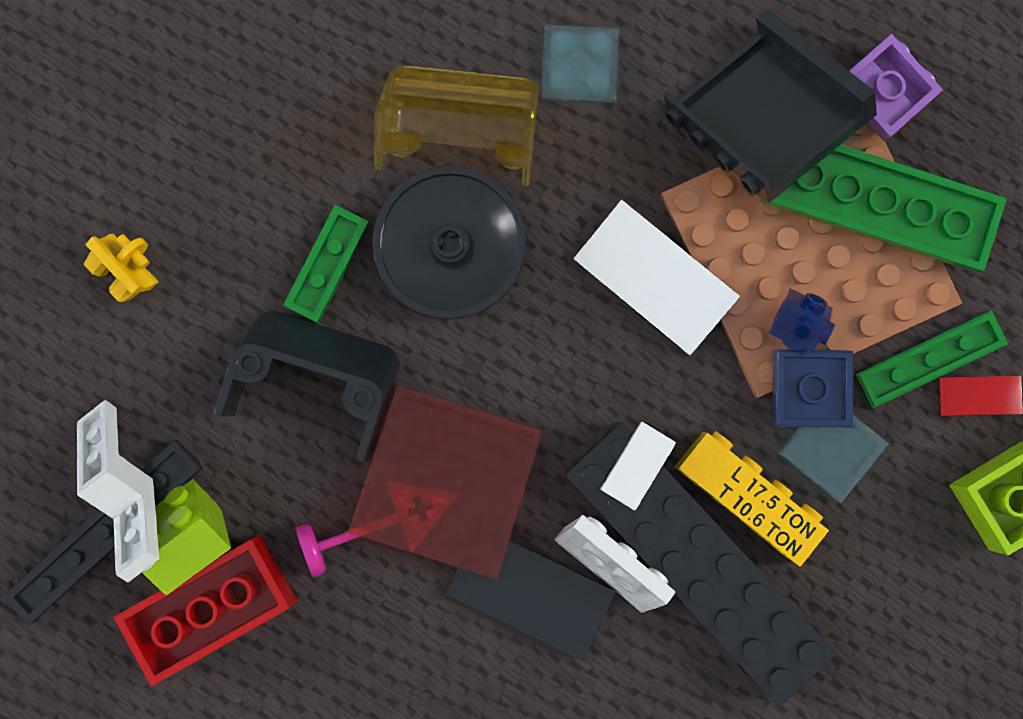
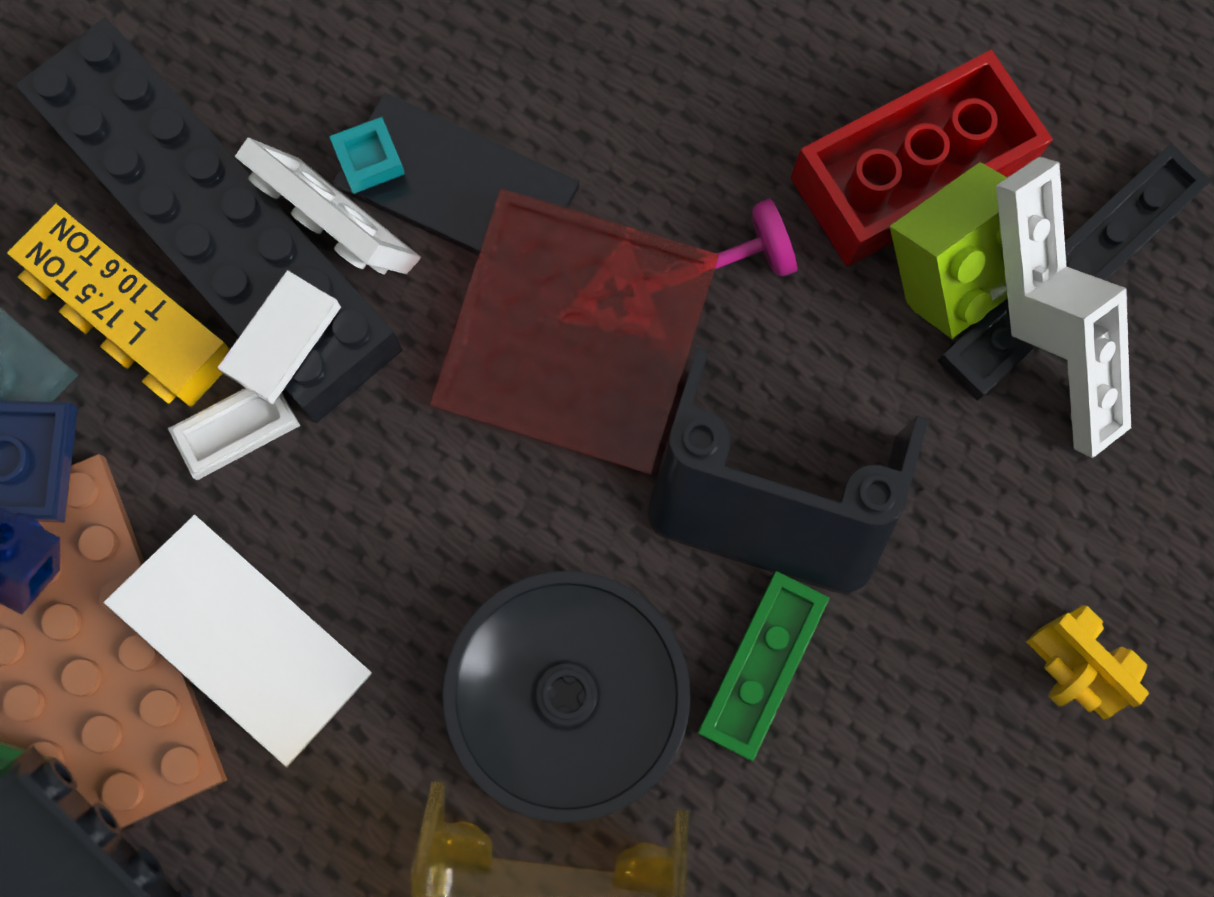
camera: 175 degrees right, 10 degrees down
(591, 607) = (367, 155): none -> teal plate
(677, 413) = (230, 430): none -> white tile

